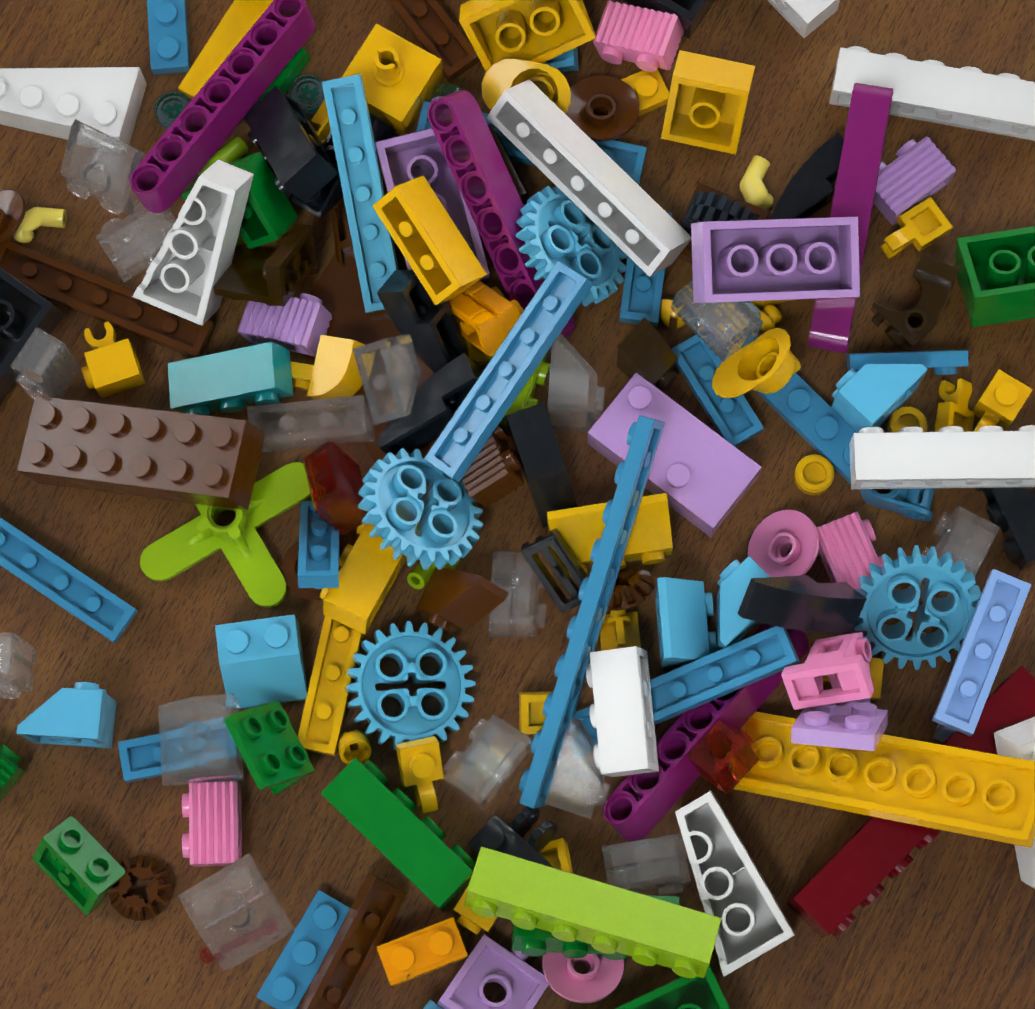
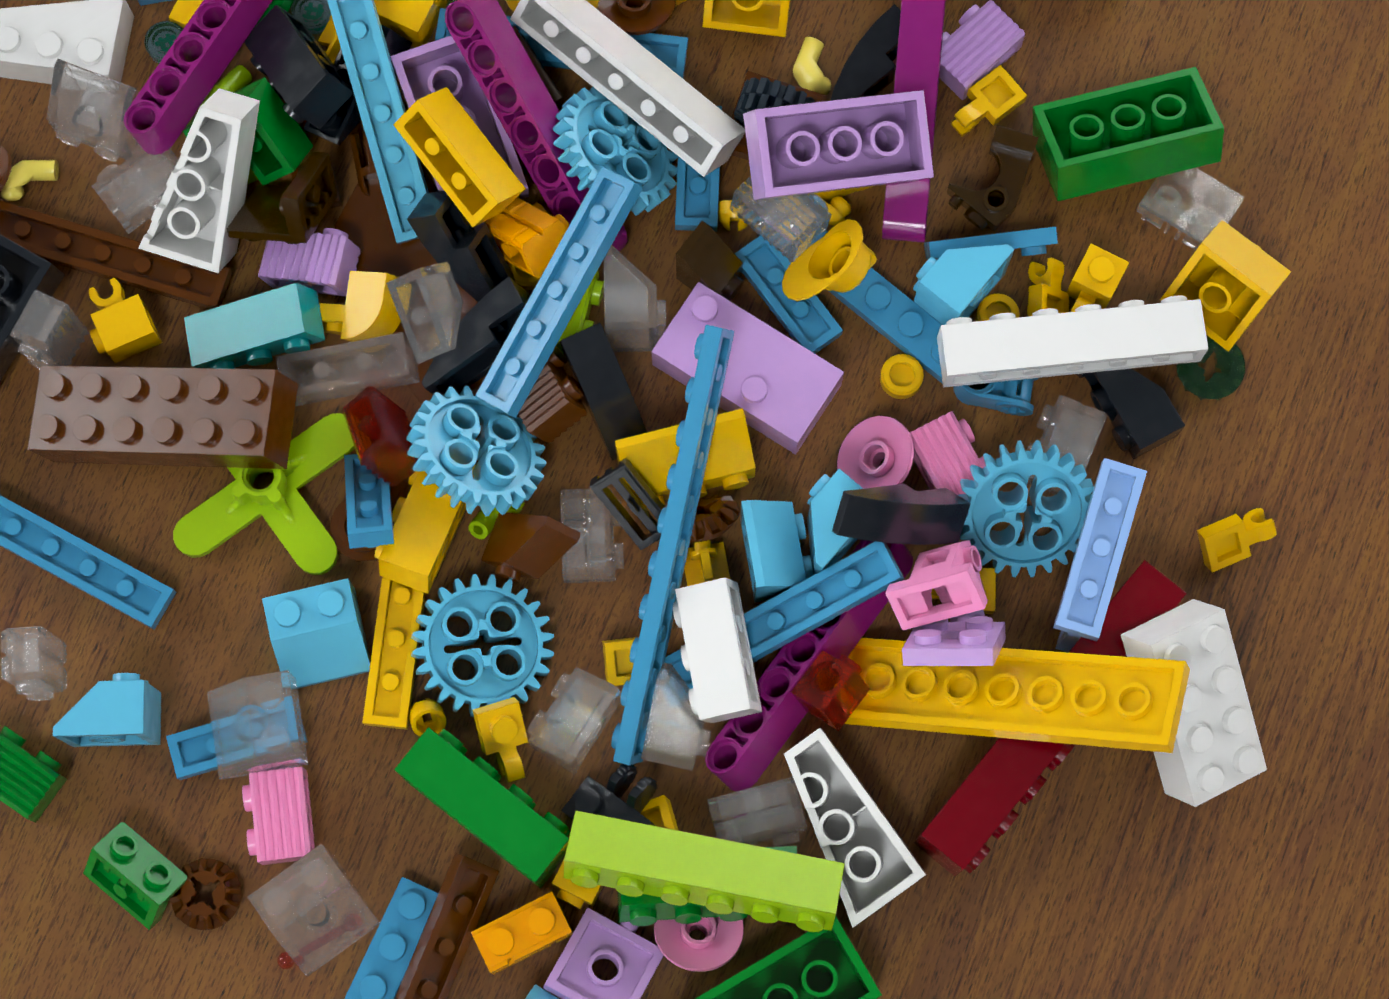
camera: 10 degrees left, 0 degrees up
(269, 747) = (334, 725): green bracket -> none

